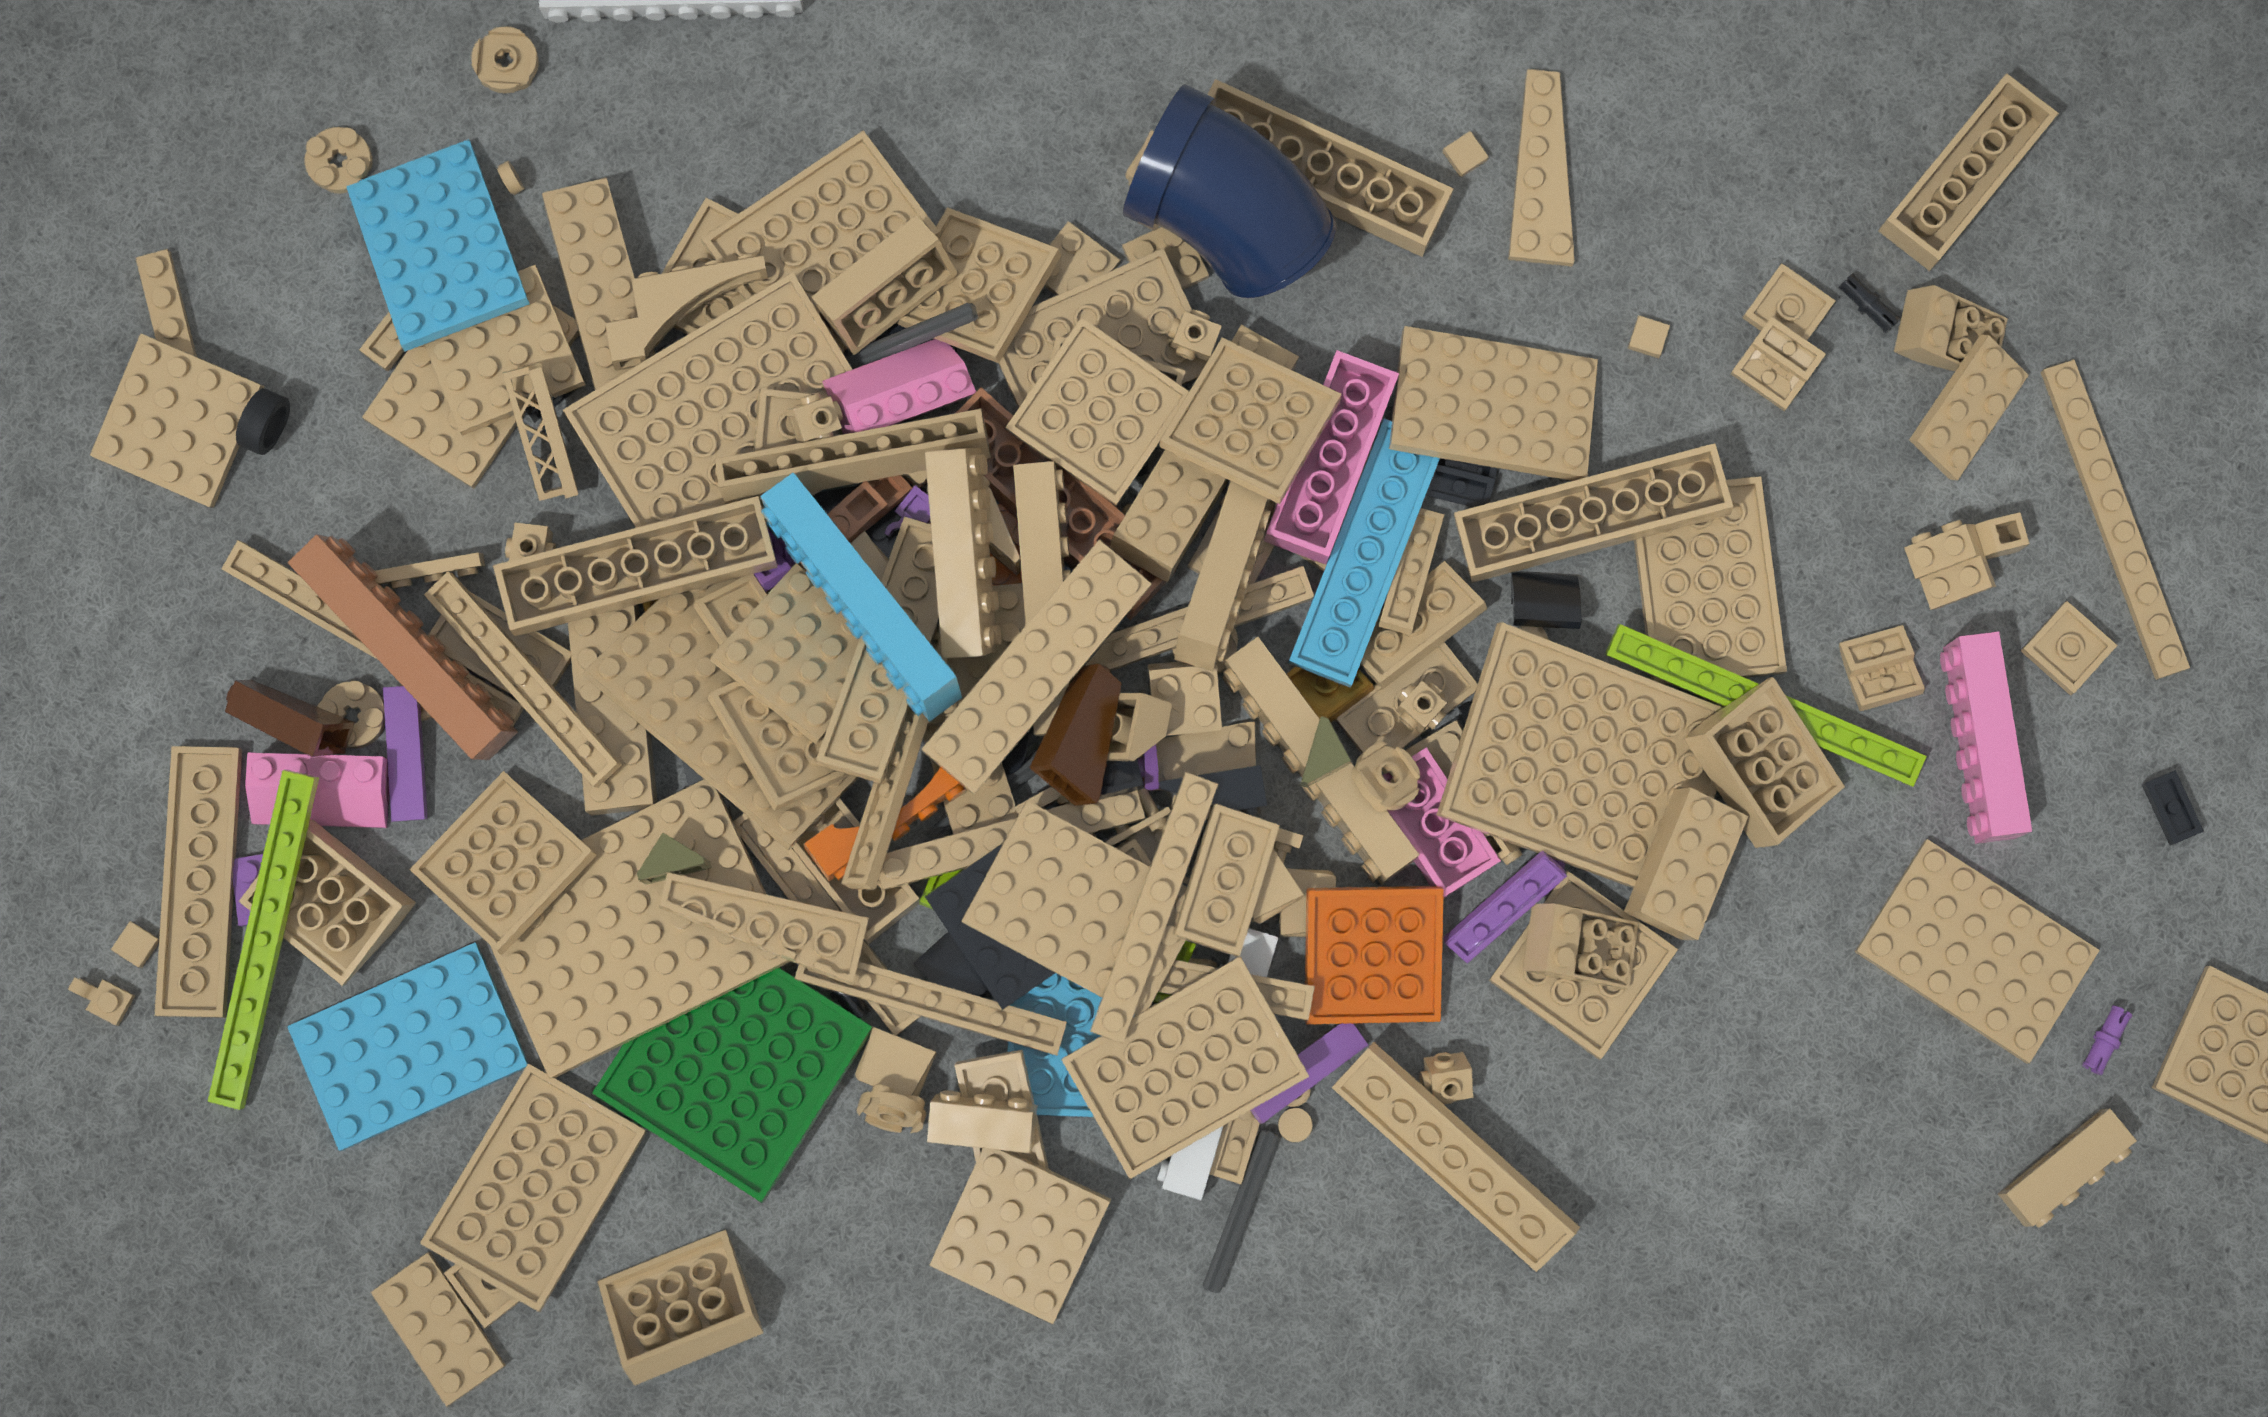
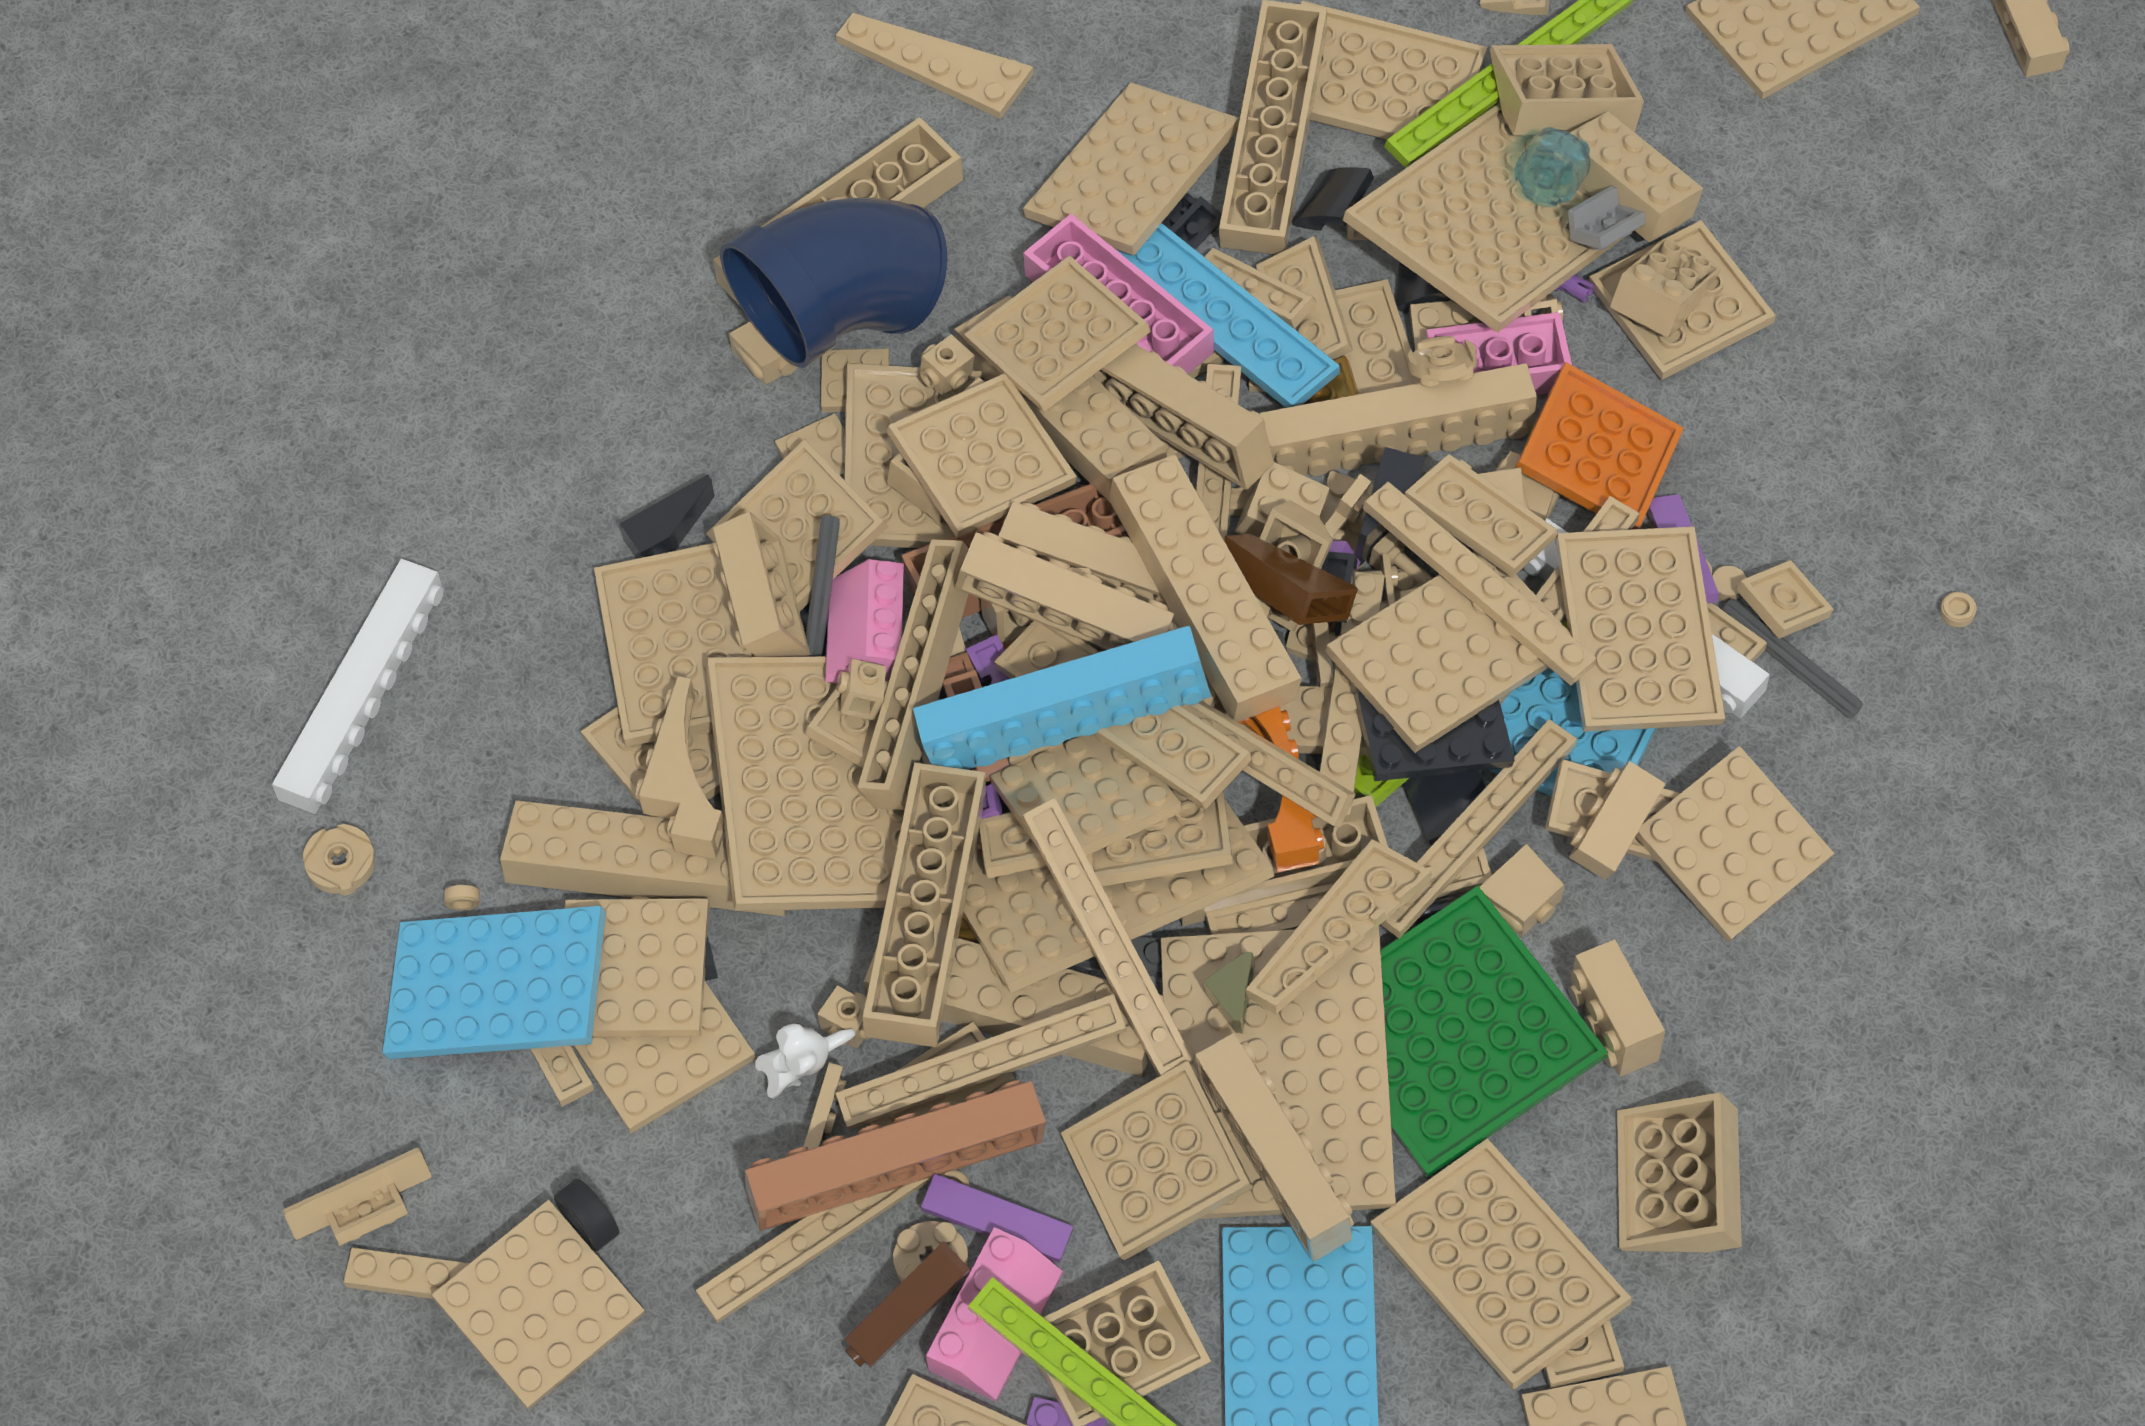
camera: 60 degrees left, 20 degrees down
(206, 238) = (361, 1201): none -> tan bracket
(322, 150) = (339, 1036): tan plate -> none
(471, 526) = (799, 1054): none -> white animal
(537, 958) = (1274, 1146): none -> tan brick
(553, 430) = (739, 941): tan fence -> none
(656, 733) = (1106, 936): none -> tan plate
(805, 1192) = (1616, 1008): none -> tan brick
(891, 1110) = (1566, 903): tan plate -> none
(937, 169) = (667, 522): none -> black slope
(1204, 757) = (1349, 508): none -> tan plate
(1293, 1183) = (1784, 599): none -> tan plate
(1325, 756) = (1397, 393): olive slope -> none
(1359, 1343) = (1958, 609): none -> tan tile
(1418, 718) = (1386, 321): tan brick -> none
(1447, 1077) = (1740, 437): tan brick -> none
(1455, 1157) = (1816, 458): tan plate -> none
(1465, 154) = (886, 112): tan tile -> none
(1505, 906) = (1602, 327): medium lavender tile -> none
(1616, 862) = (1602, 220): none -> light grey bracket
(1648, 336) = (1129, 39): tan tile -> none
(1650, 791) = (1552, 167): none -> clear light blue brick

